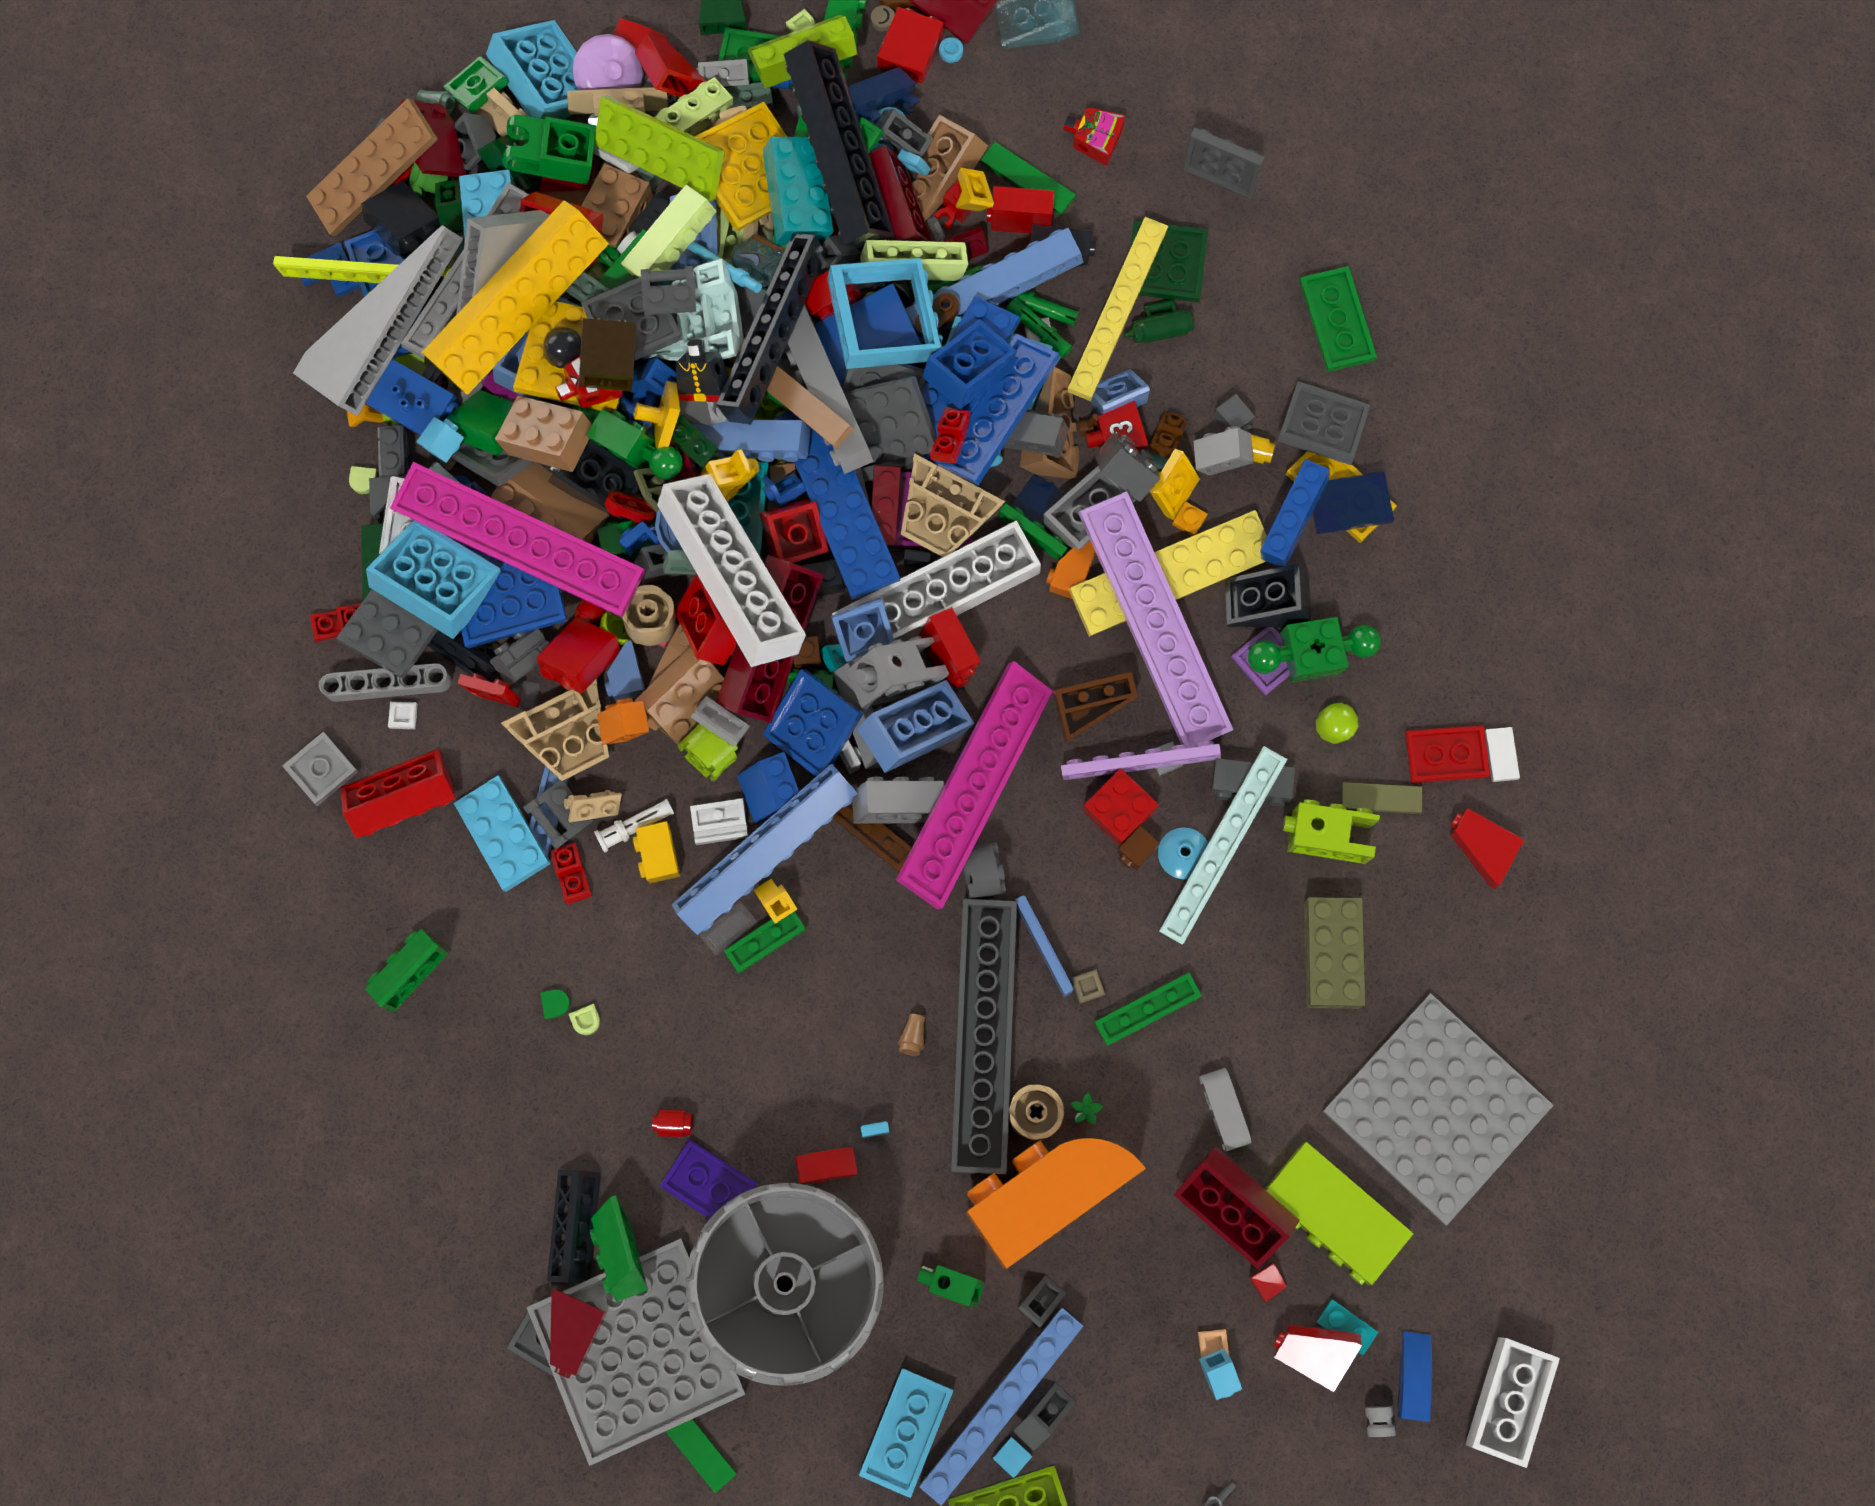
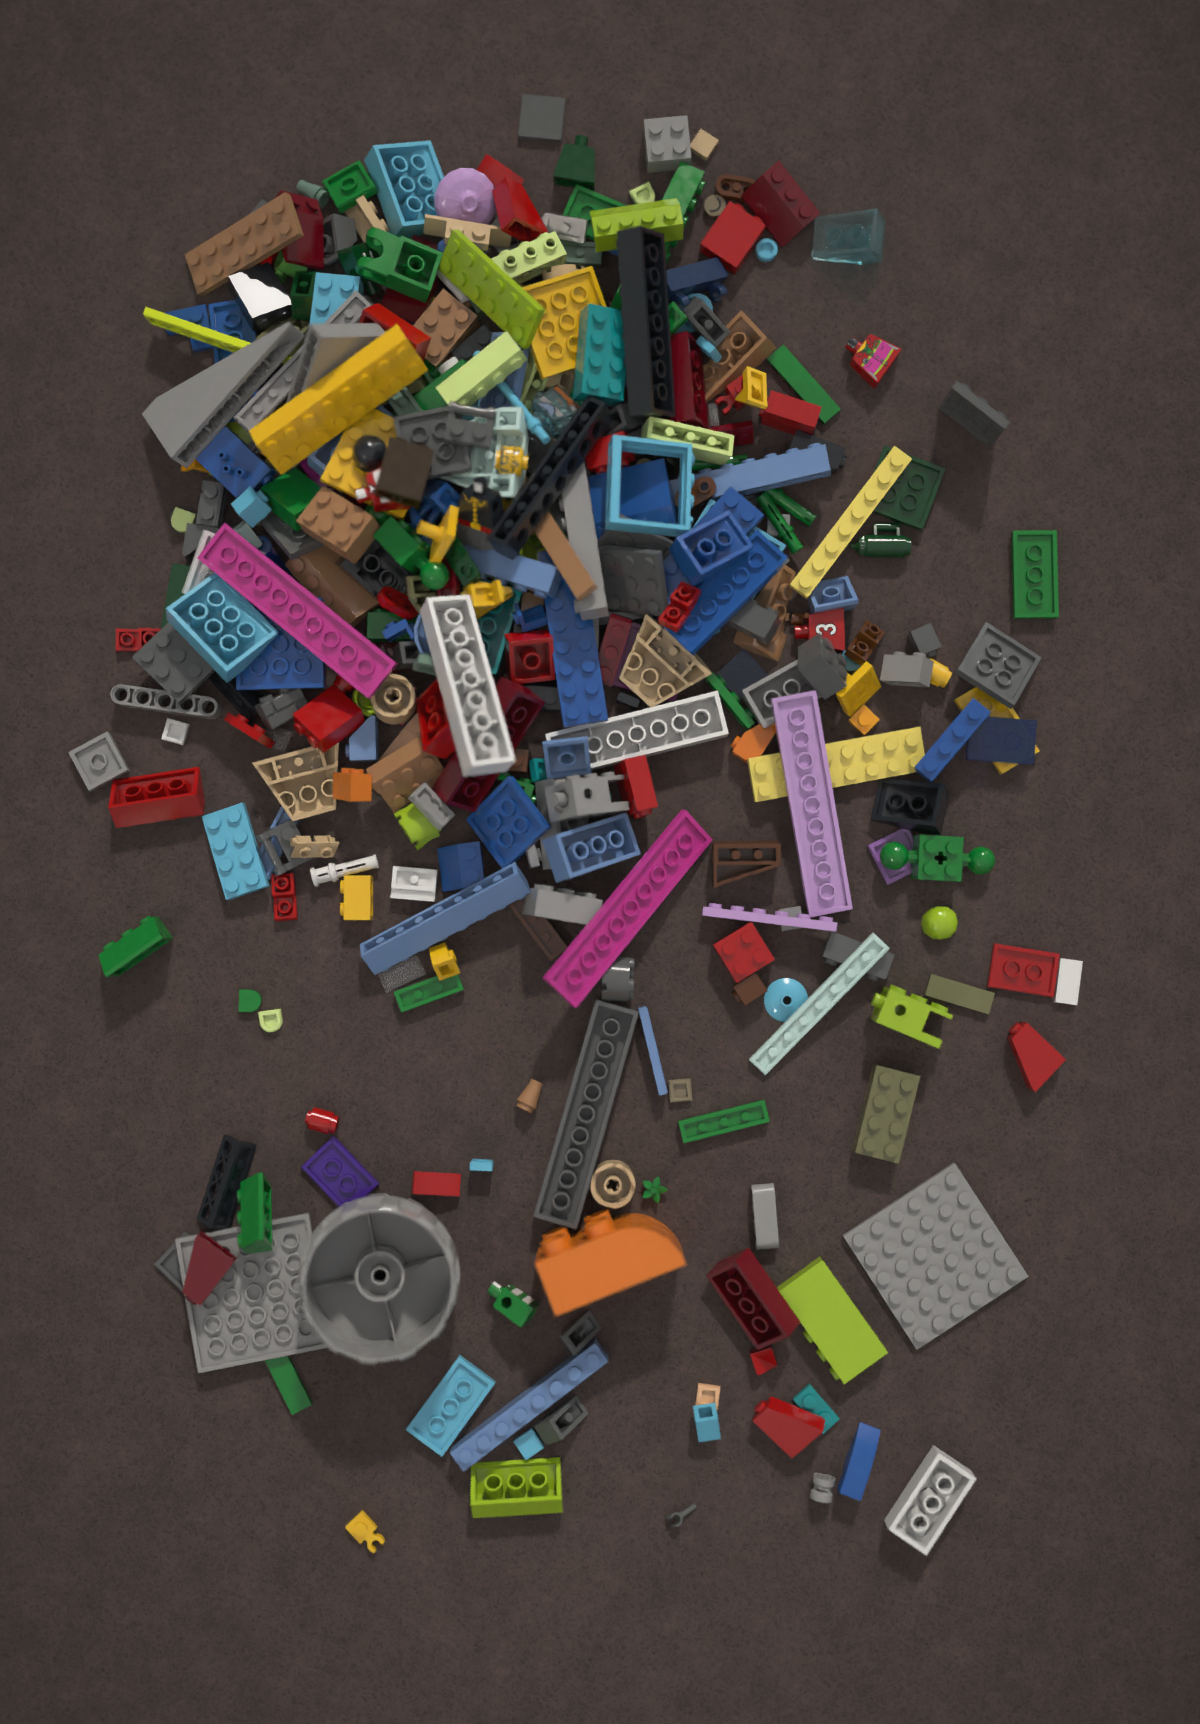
camera: 15 degrees right, 10 degrees up
(723, 317) = (511, 460): none -> yellow head

